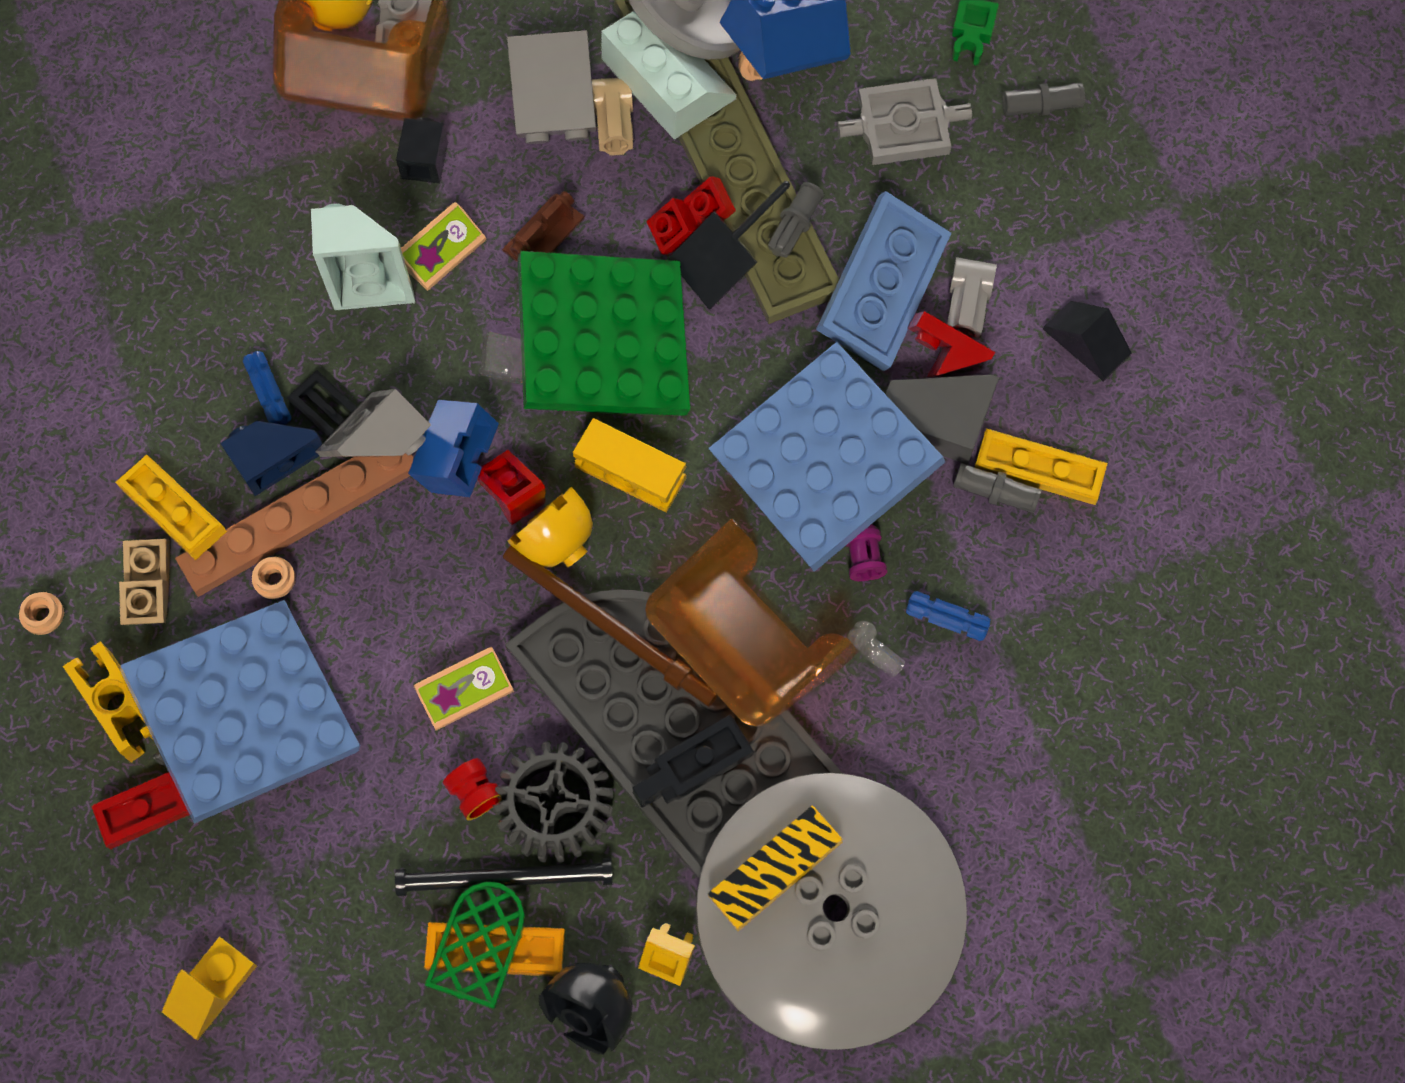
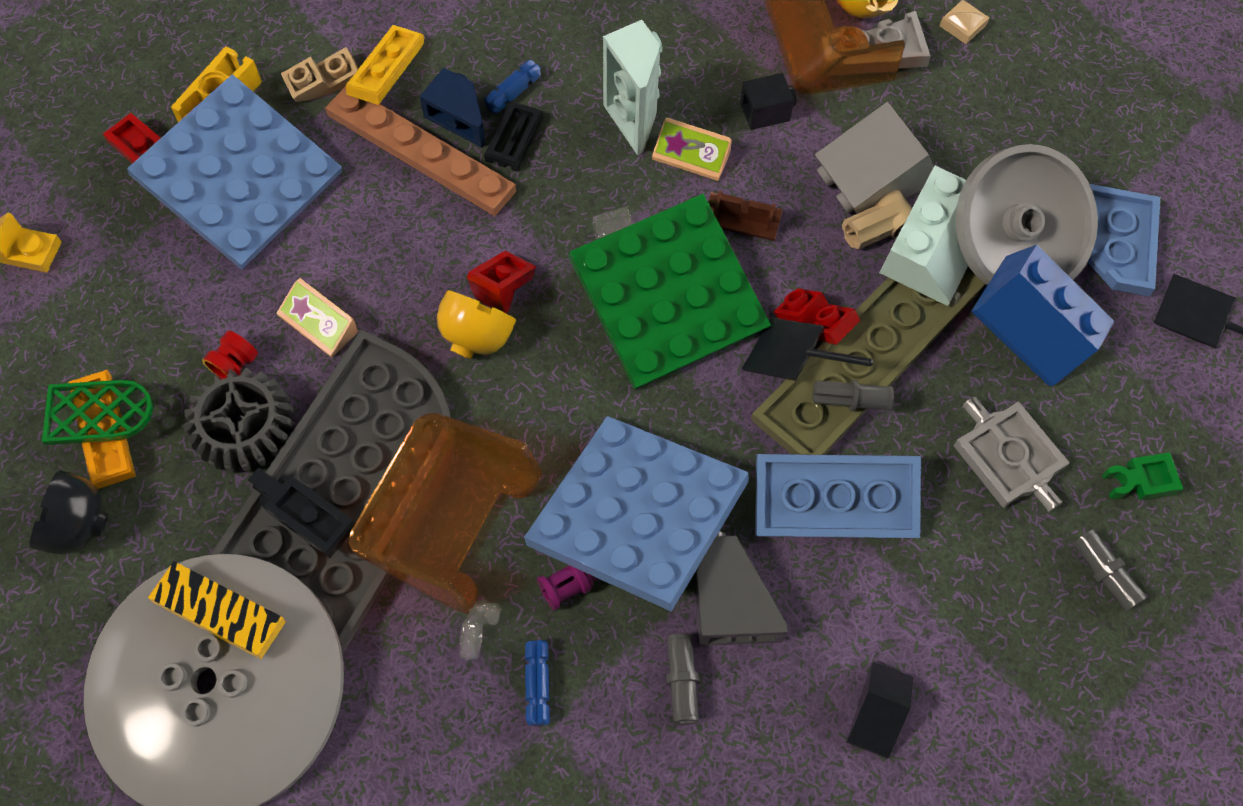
camera: 65 degrees right, 5 degrees down
(33, 604) = (272, 24): light nougat plate -> none
(265, 569) = (355, 145): light nougat plate -> none
(378, 427) = (497, 162): light grey slope -> none
(452, 447) = (514, 224): blue brick -> none
(506, 876) = (194, 484): black bar -> none
(629, 465) = (561, 360): yellow piece -> none
(667, 955) = (132, 561): yellow tile -> none
(676, 672) = (381, 461): reddish brown bar -> none
(957, 348) = (802, 588): red slope -> none
(970, 290) = (875, 576): light grey piece -> none
(1042, 466) = (726, 714): yellow tile -> none

